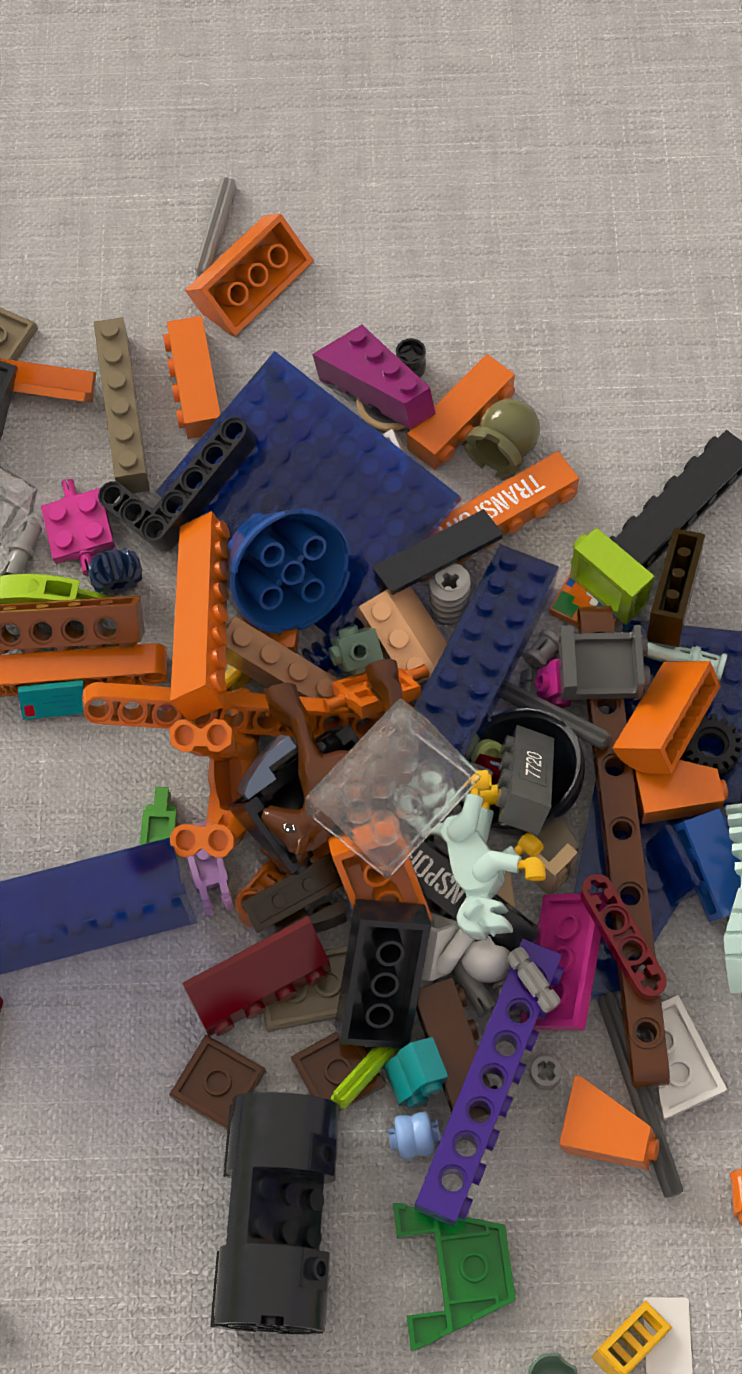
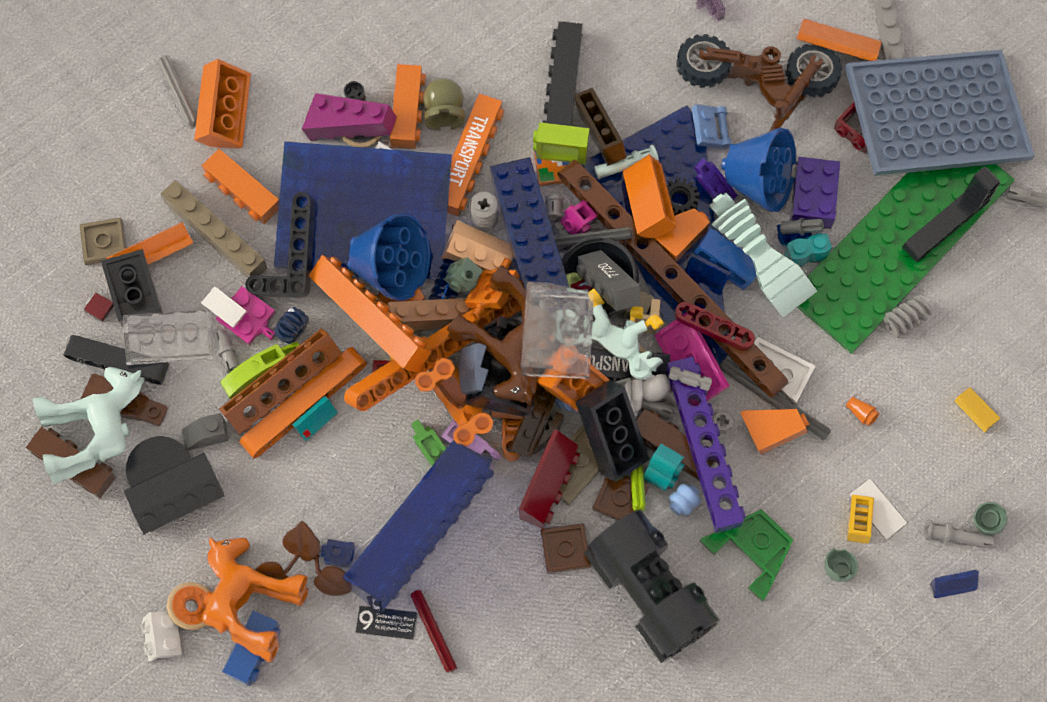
camera: 40 degrees left, 5 degrees up
(56, 497) = (224, 307): none -> white slope
(436, 553) = (464, 194): black panel -> none
(602, 664) = (597, 193): dark grey panel -> none

